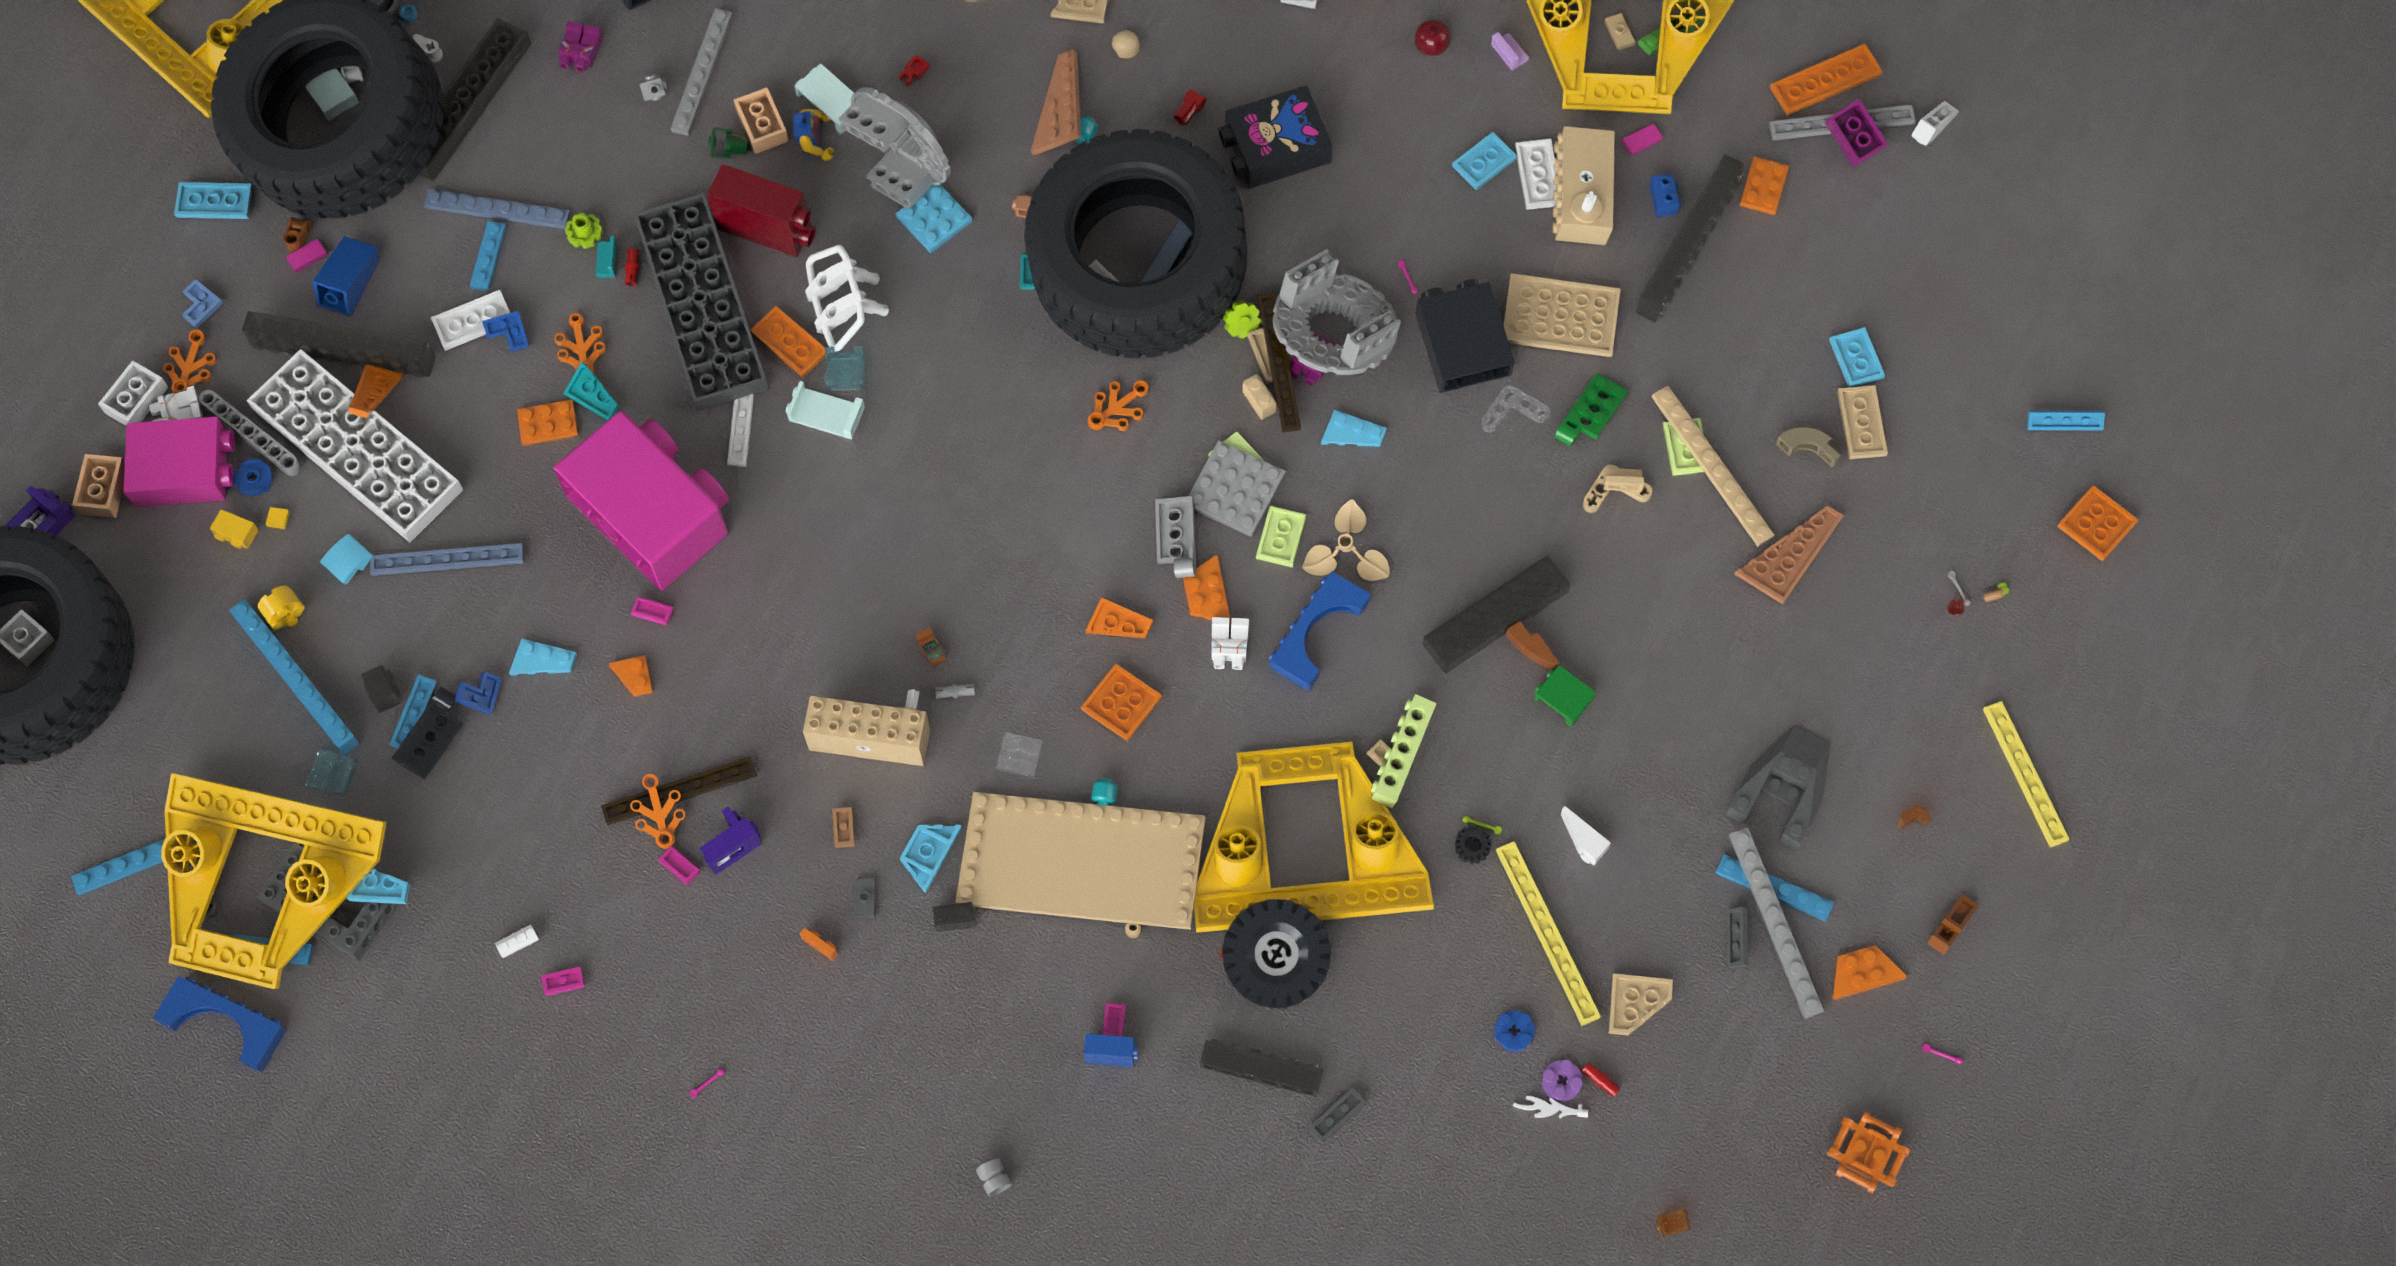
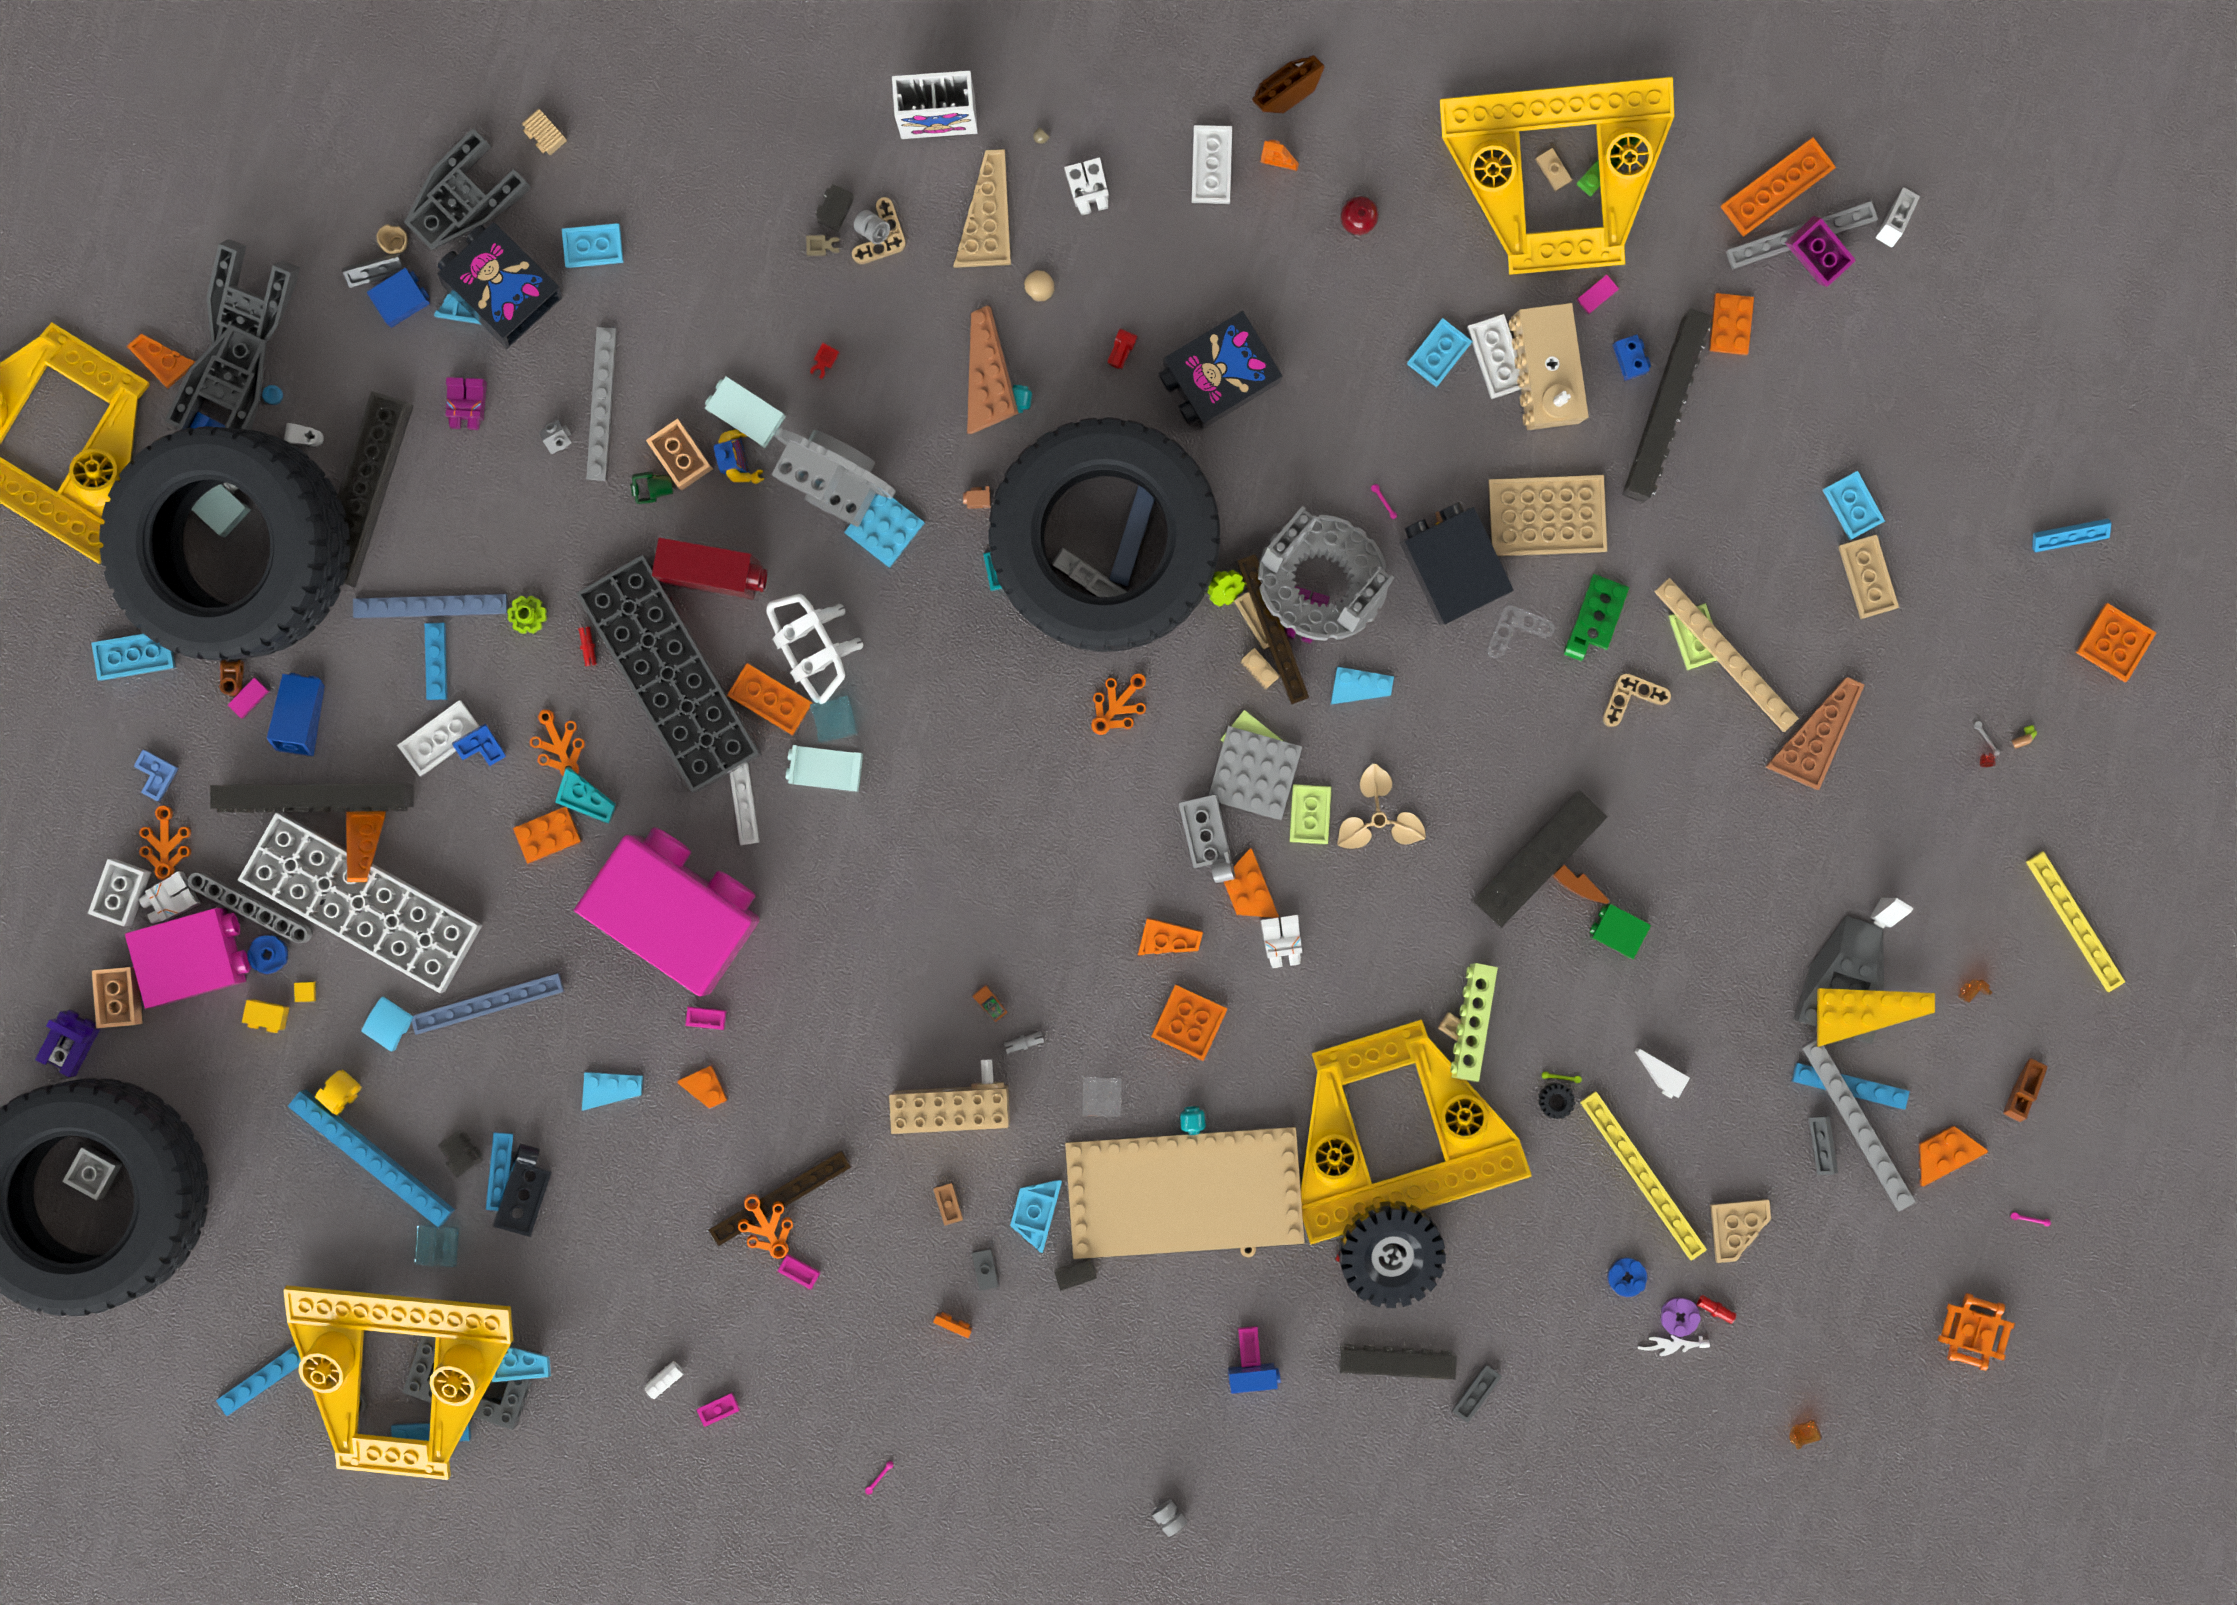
camera: 15 degrees left, 20 degrees up
(188, 999) = (442, 1516): blue arch -> none
(483, 696) = (564, 1141): blue plate -> none
(606, 258) = (559, 641): teal panel -> none
(732, 843) = (852, 1240): dark purple brick -> none
(1333, 596) = (1346, 943): blue arch -> none
(1509, 50) = (1443, 215): lavender panel -> none
(1623, 479) = (1640, 689): tan panel -> none
(1791, 807) = (1855, 1012): none -> yellow wing
(1809, 439) = (1819, 607): dark tan arch -> none
(1838, 721) = (1889, 912): none -> white slope

